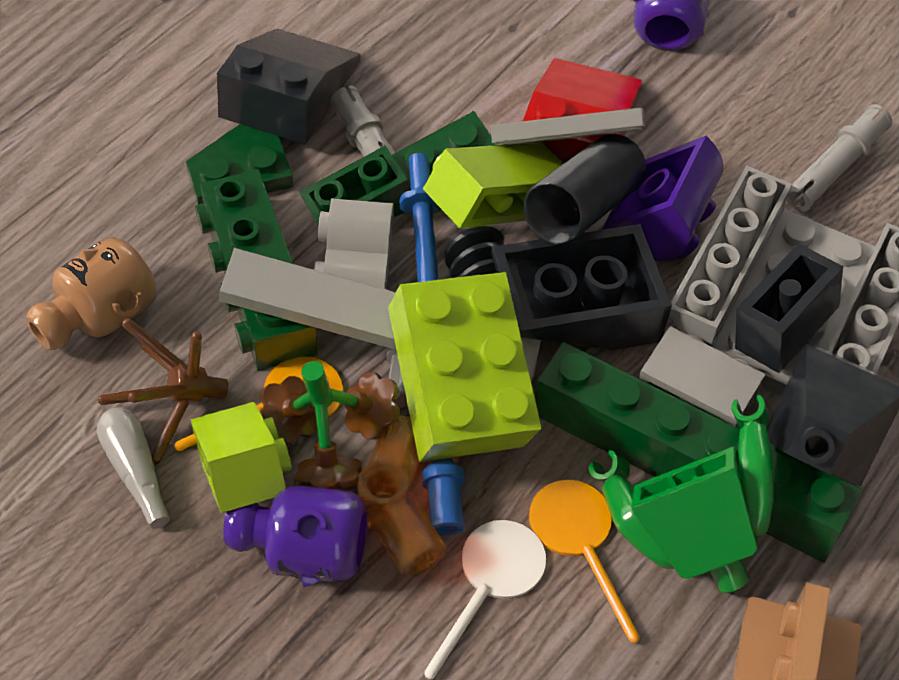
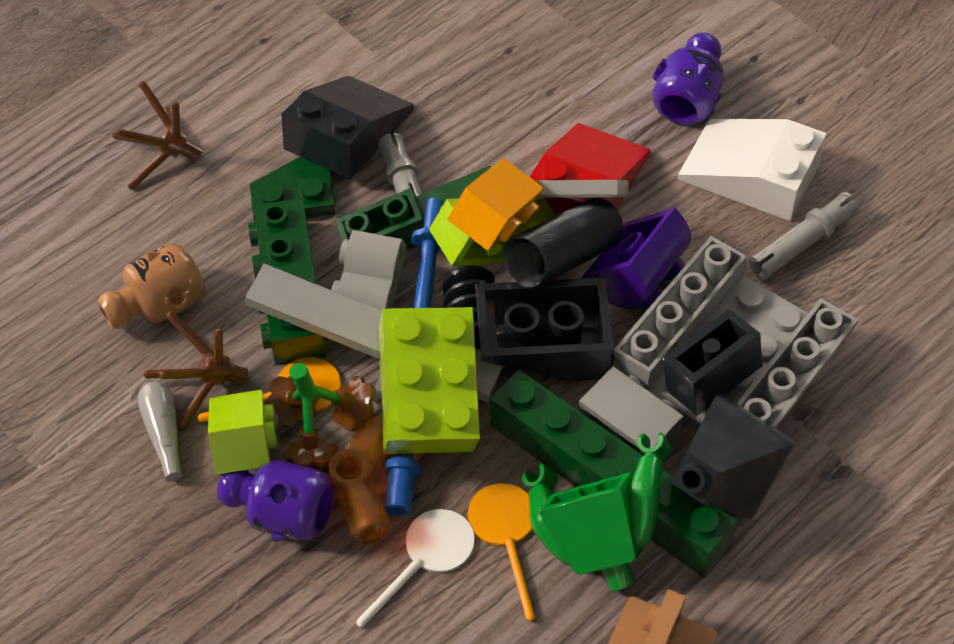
camera: 15 degrees right, 0 degrees up
(81, 120) = (171, 143): none -> reddish brown plant
(506, 150) = (496, 204): none -> light orange brick
(765, 82) = (756, 162): none -> white slope

